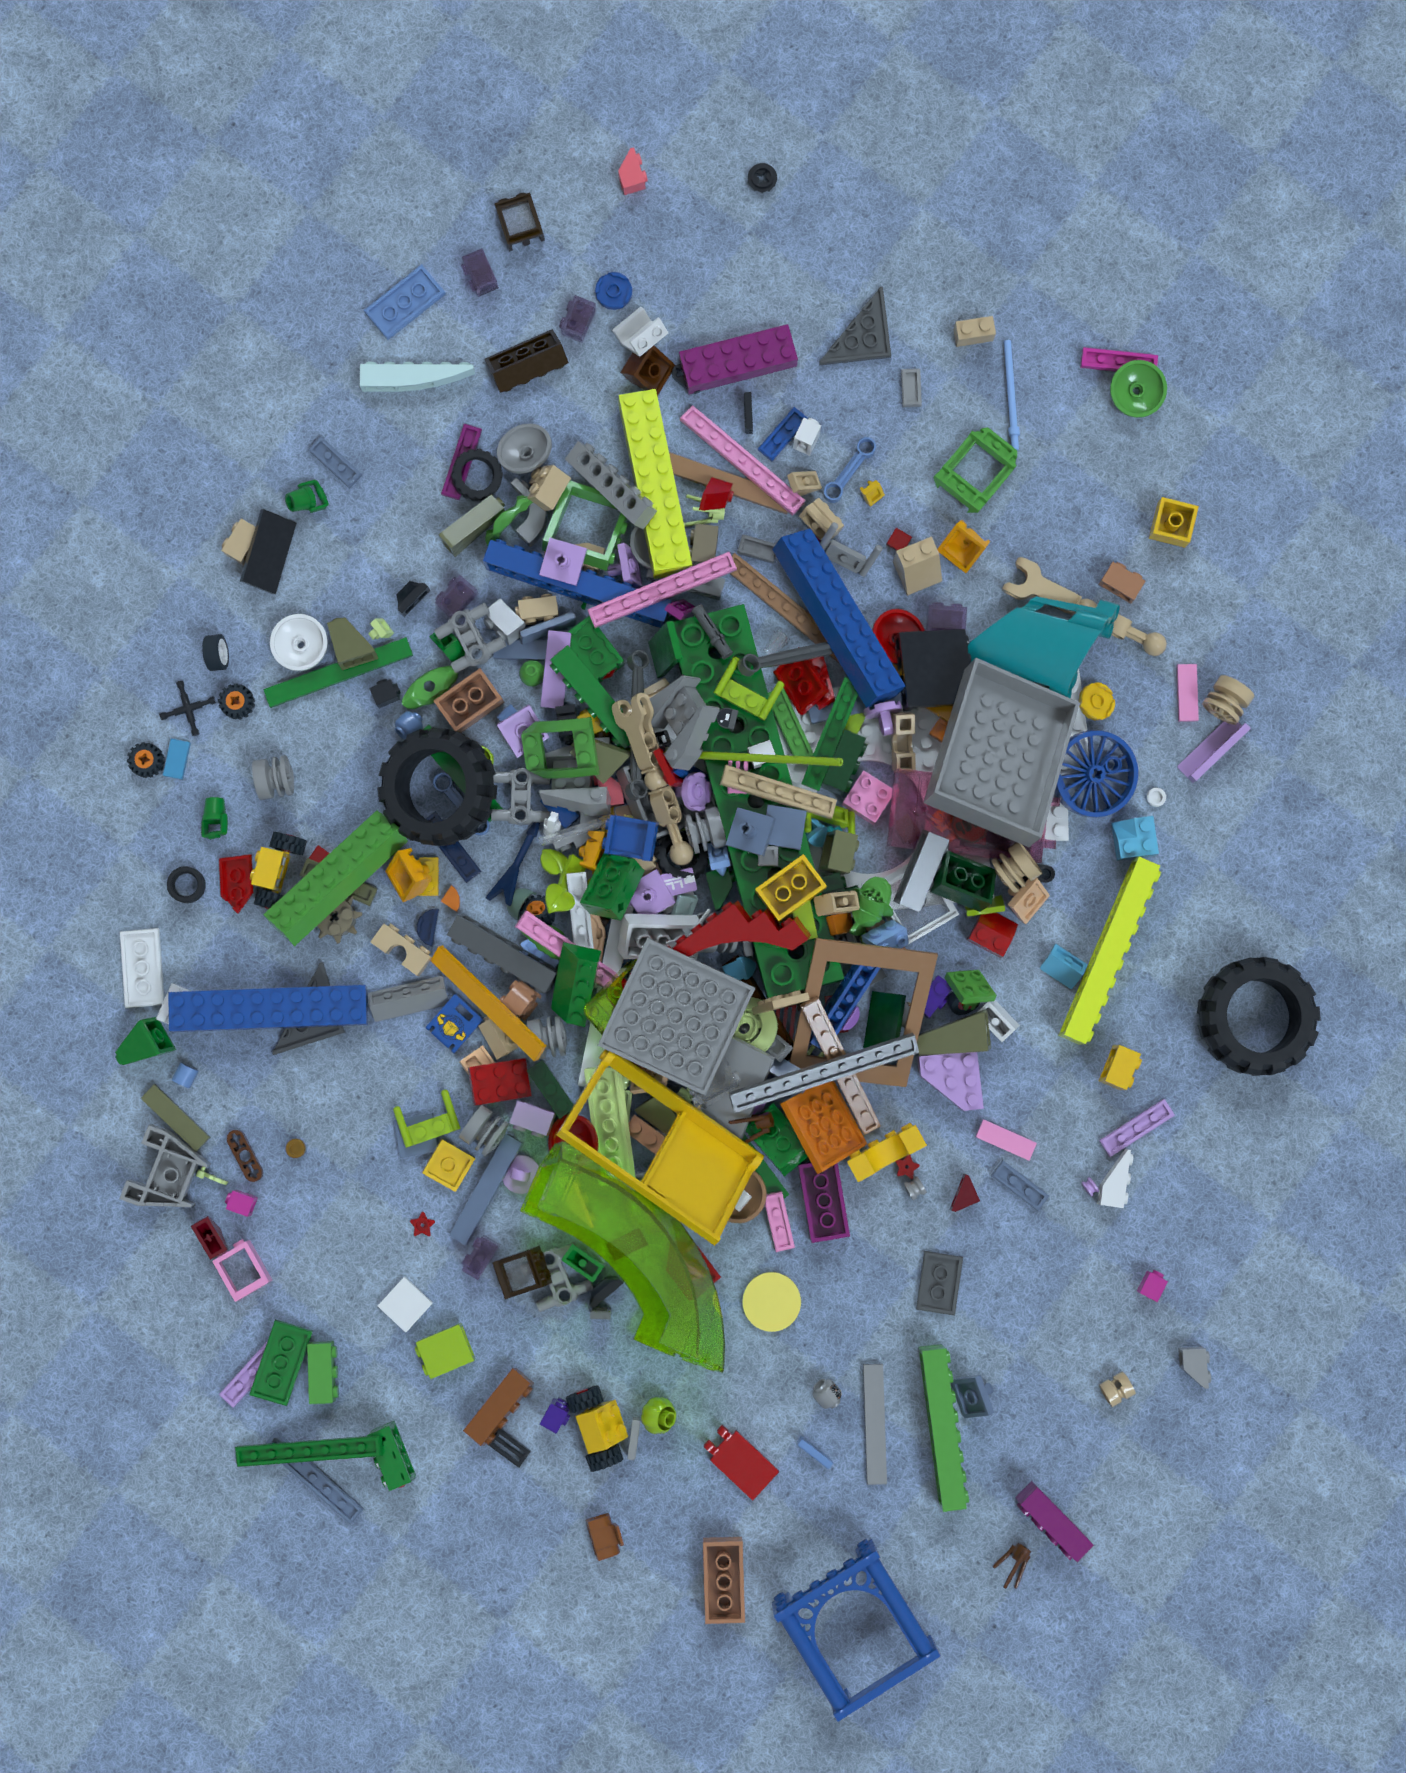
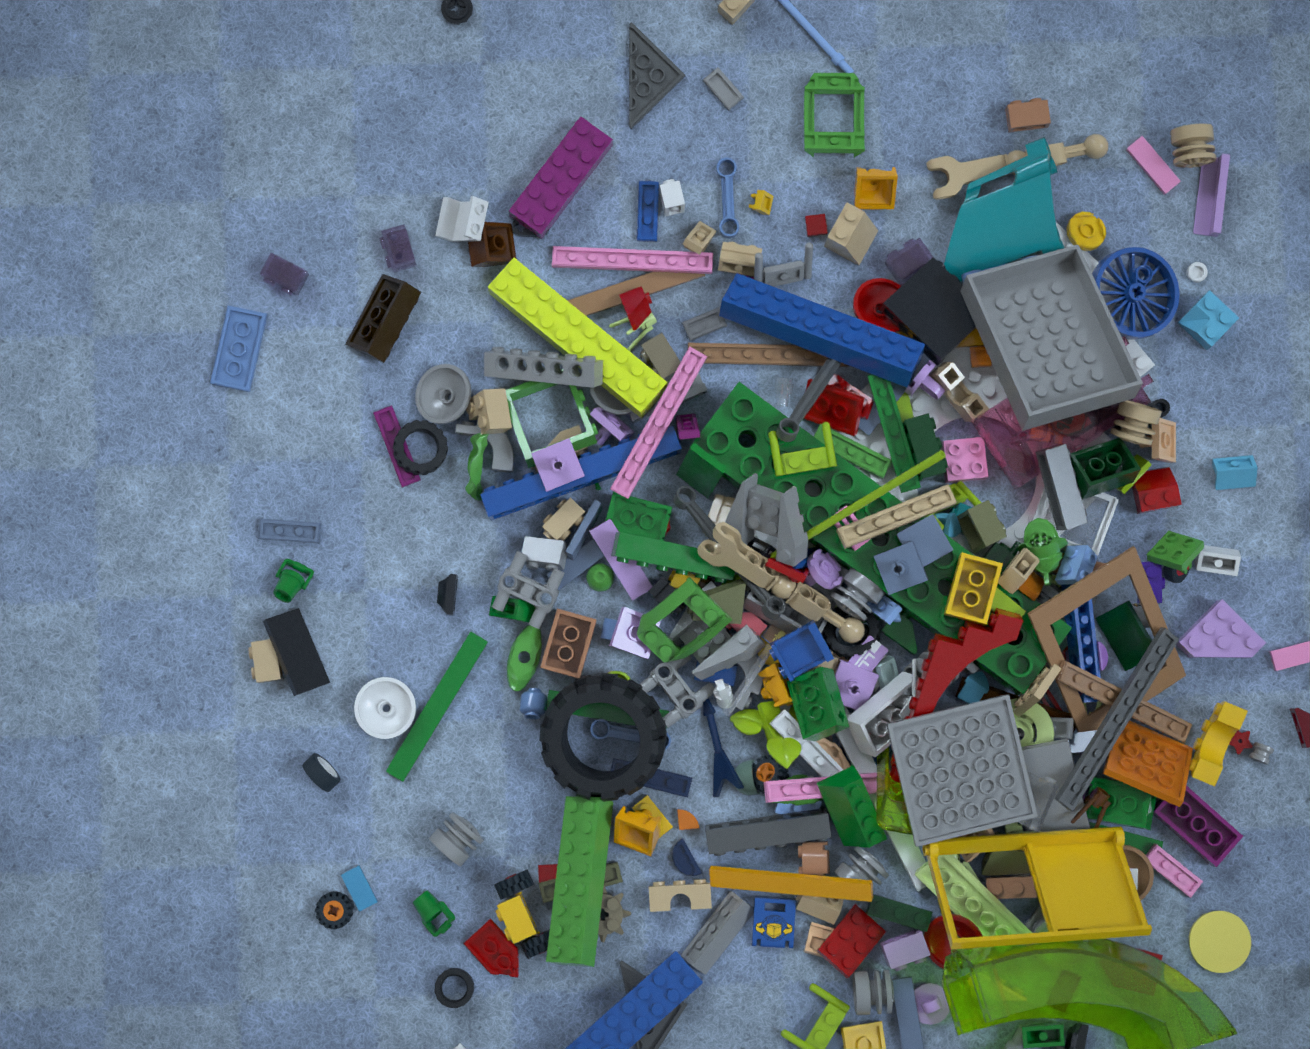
camera: 40 degrees left, 0 degrees up
(187, 708) = (333, 838): black piece -> none
(241, 706) = (375, 804): black wheel -> none
(349, 644) = (429, 675): olive slope -> none
(381, 629) = (444, 641): yellowish green tile -> none
(385, 692) = (491, 691): black brick -> none
(410, 376) = (295, 408): light aqua slope -> none
(456, 596) = (486, 564): clear purple brick -> none
(471, 525) = (451, 492): slope -> none
(519, 219) = (281, 203): window -> none
(617, 295) = (408, 207): blue tile -> none
(630, 173) = (345, 92): coral slope -> none
(714, 635) = (734, 426): dark grey pin -> none
(727, 718) = (805, 488): tile -> none
(748, 413) = (605, 216): black tile -> none
(761, 748) = (857, 492): white panel -> none
(770, 857) = (934, 576): light grey tile -> none
(958, 1036) = (1197, 600): olive slope -> none
(1109, 951) = (1263, 430): neon yellow brick -> none
(1173, 522) = (1030, 32): yellow brick -> none

